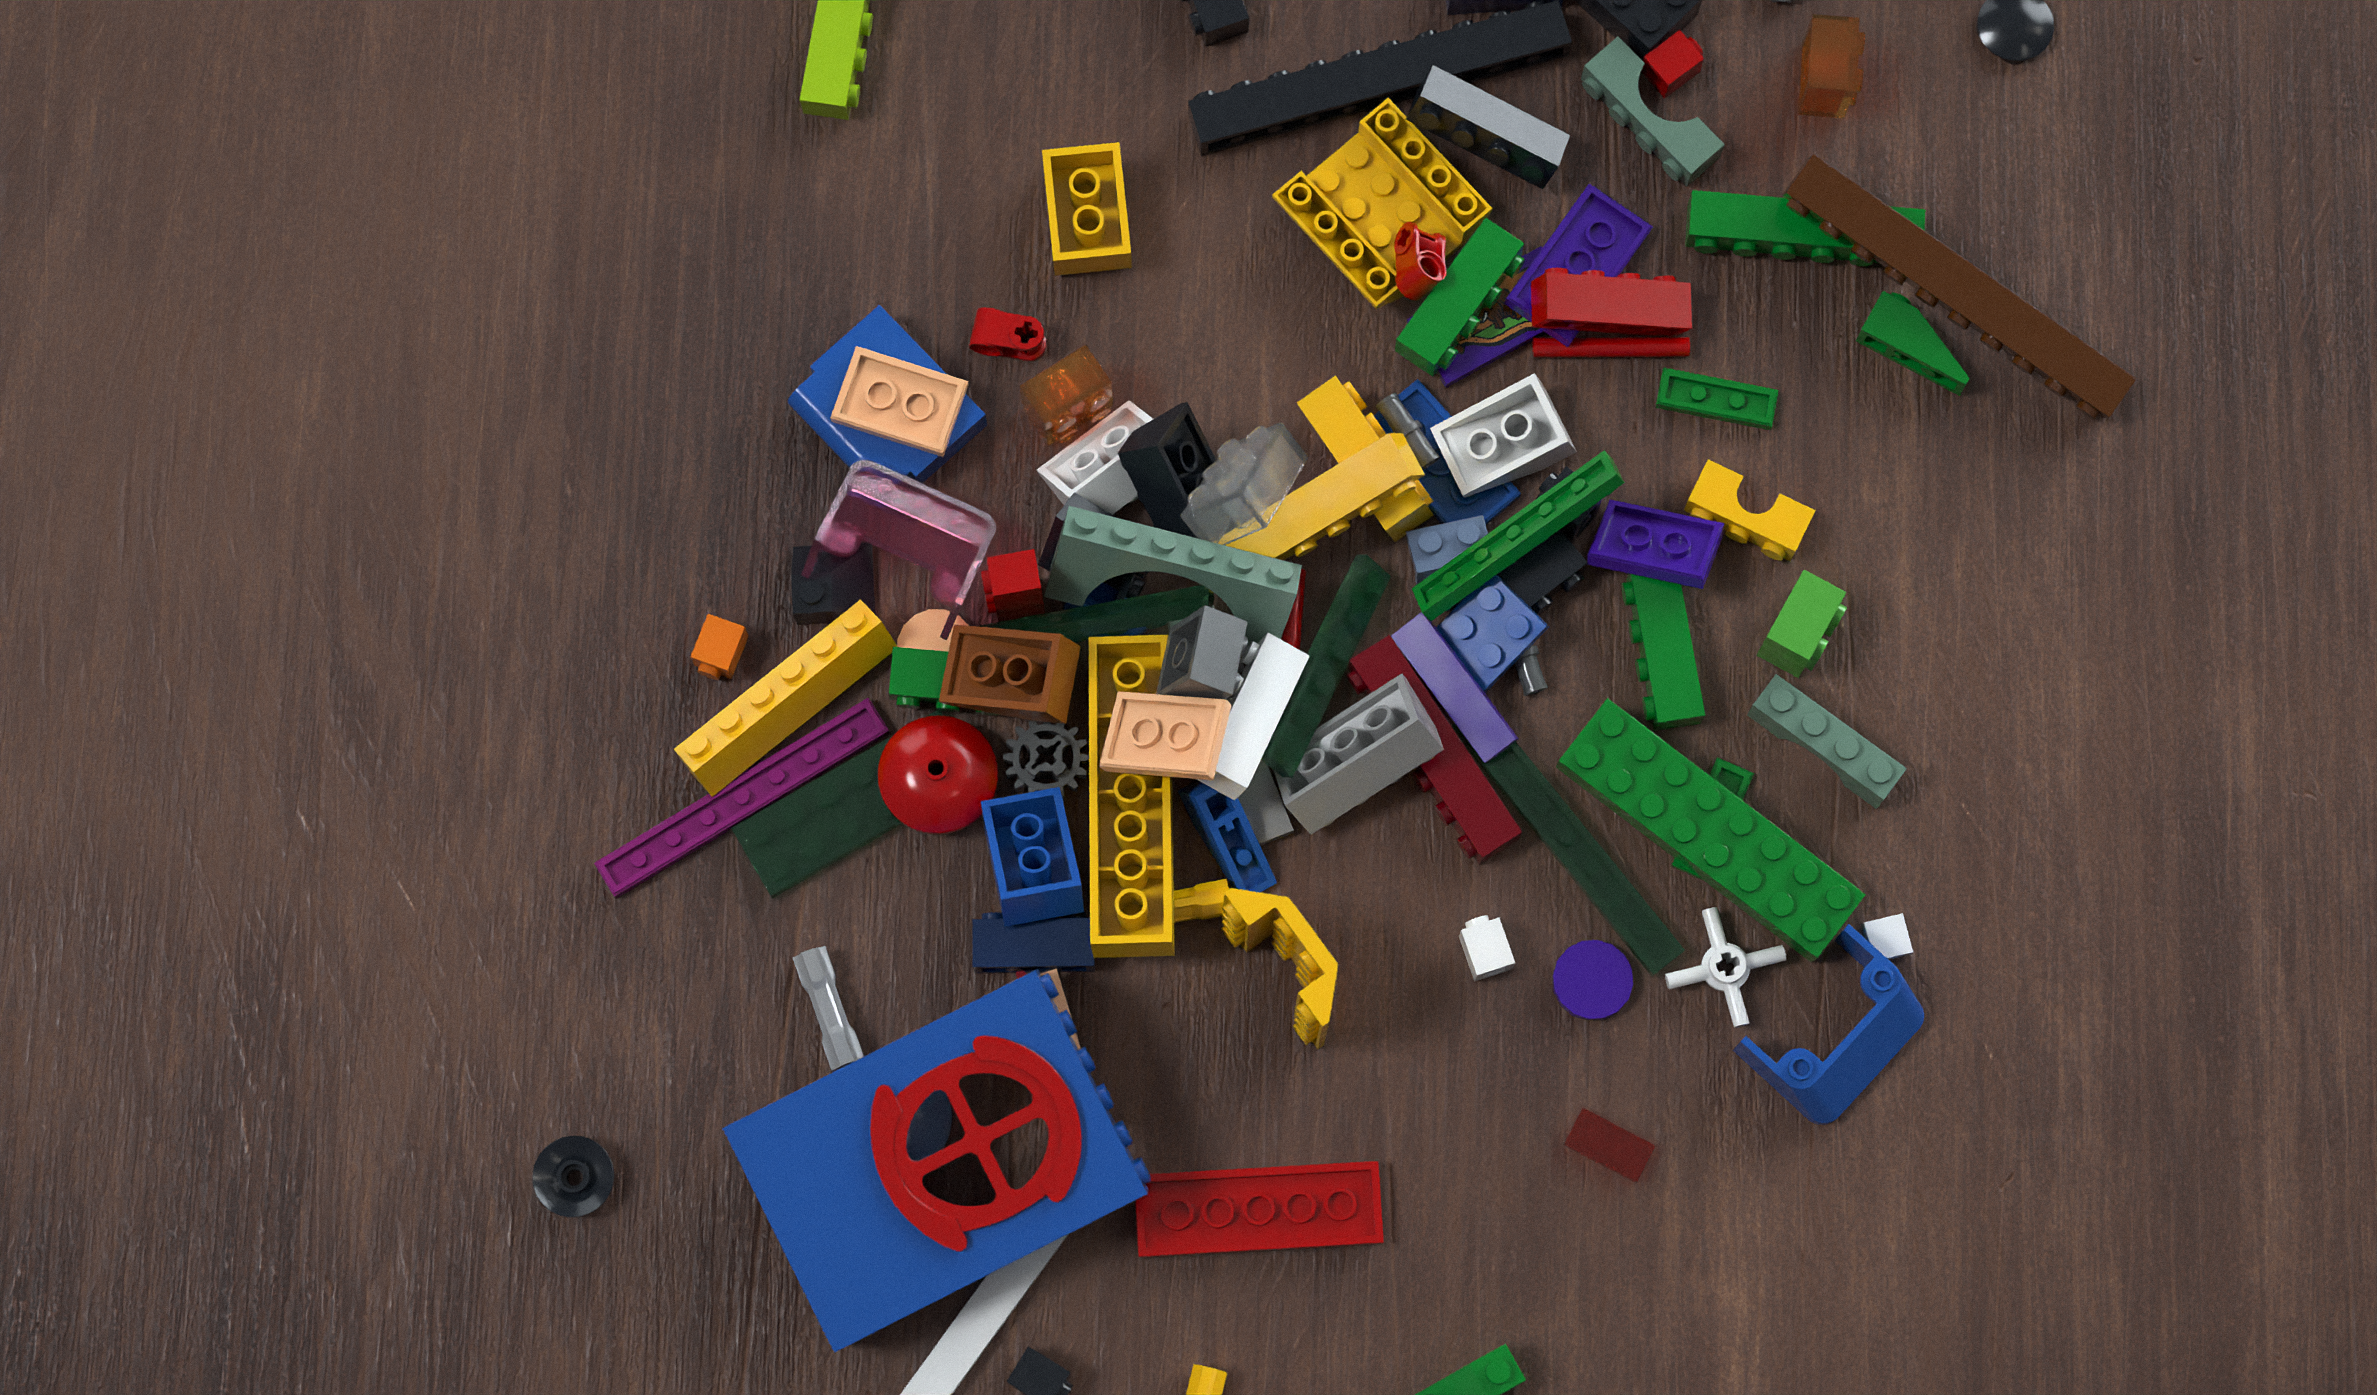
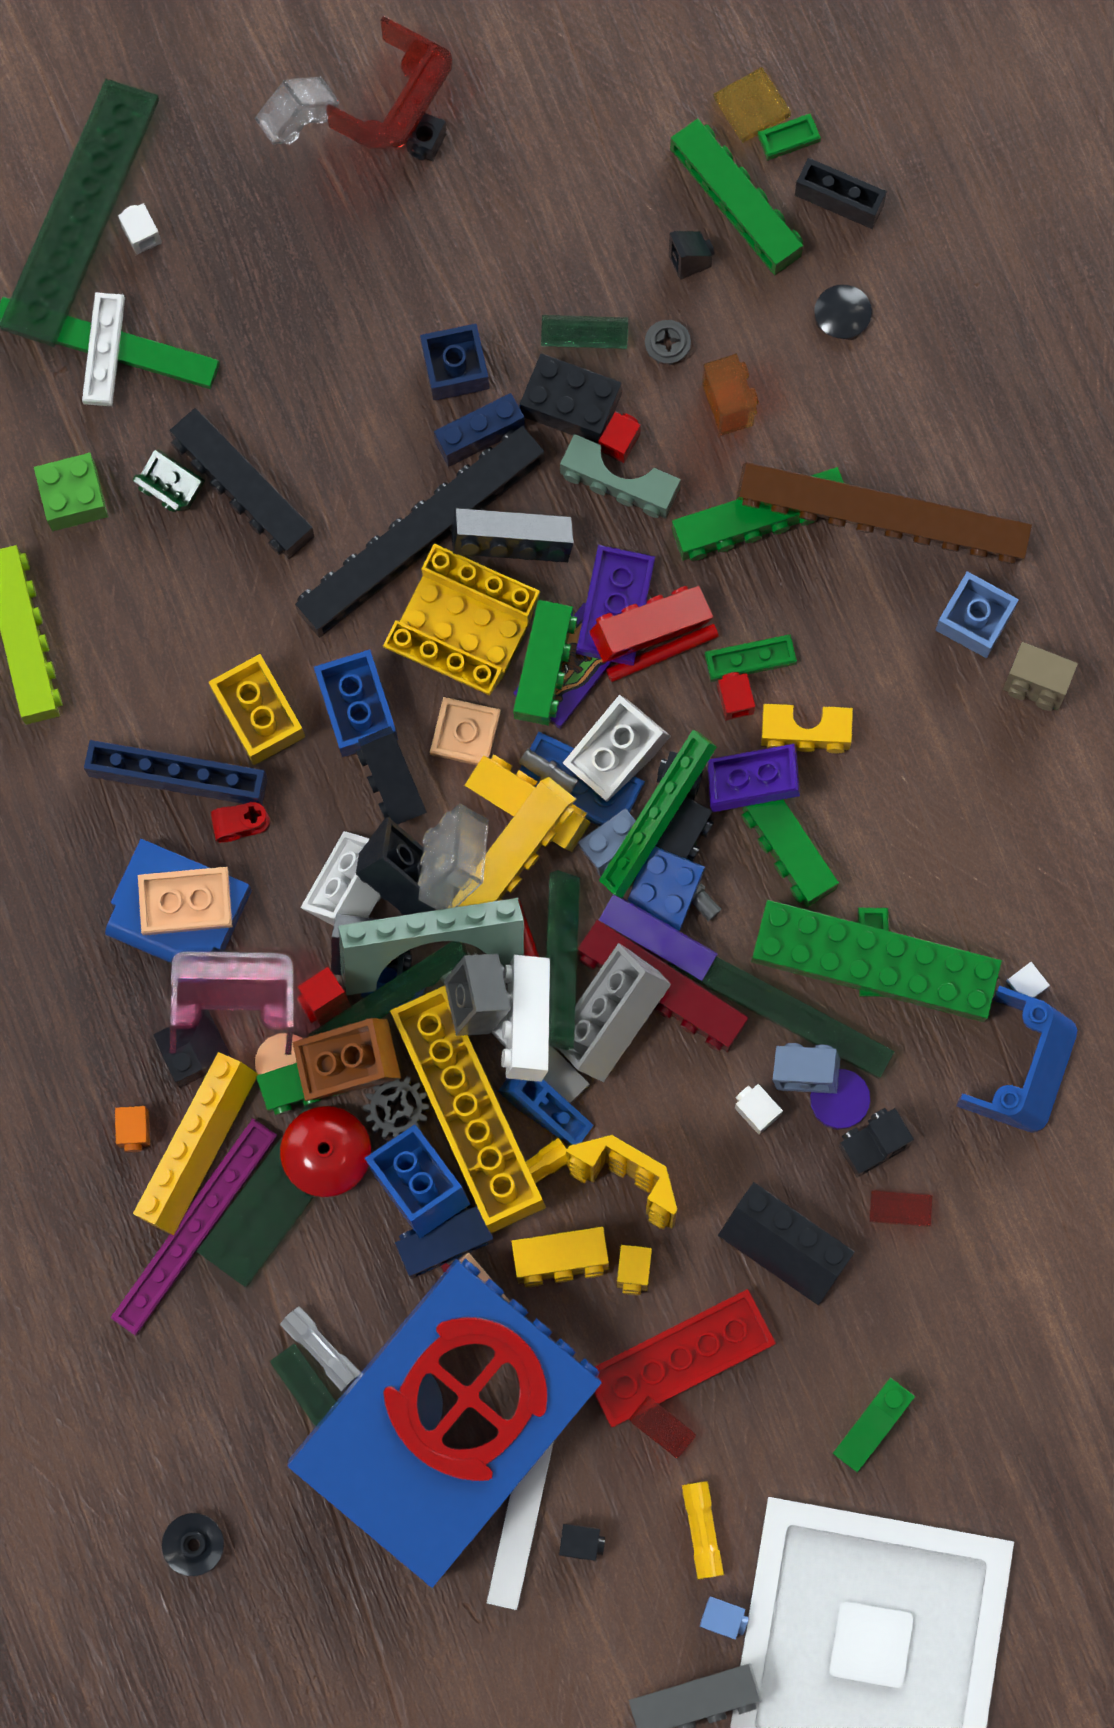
camera: 20 degrees left, 0 degrees up
(790, 1040) = (303, 1383): none -> clear green plate
(955, 244) = (175, 773): none -> dark blue brick
(1067, 396) = (301, 847): clear orange brick -> none
(1165, 735) = (475, 1057): light nougat tile -> none
(1165, 1022) = (560, 1256): none -> yellow brick
(1201, 1283) = (662, 1427): none -> clear red tile
(1209, 251) = (354, 699): none -> blue brick
(1212, 355) = (390, 776): none -> black brick
(1248, 1076) = (633, 1269): none -> yellow brick
(1327, 340) = (464, 731): none -> light nougat tile
(1418, 260) = (505, 649): red piece -> none
(1449, 1126) = (785, 1243): none -> black slope
(1567, 924) = (806, 1068): none -> sand blue brick
(1613, 1053) = (876, 1143): none -> black brick
(1678, 436) = (736, 696): none -> red brick
(1733, 954) = (927, 1039): white bar -> none
(1797, 632) = (876, 792): bright green brick -> none
(1852, 757) = (953, 869): sand green arch -> none
(1906, 337) = (861, 561): green slope -> none
(2020, 461) = (976, 614): none -> medium blue brick
(2065, 569) = (1040, 677): none -> dark tan brick

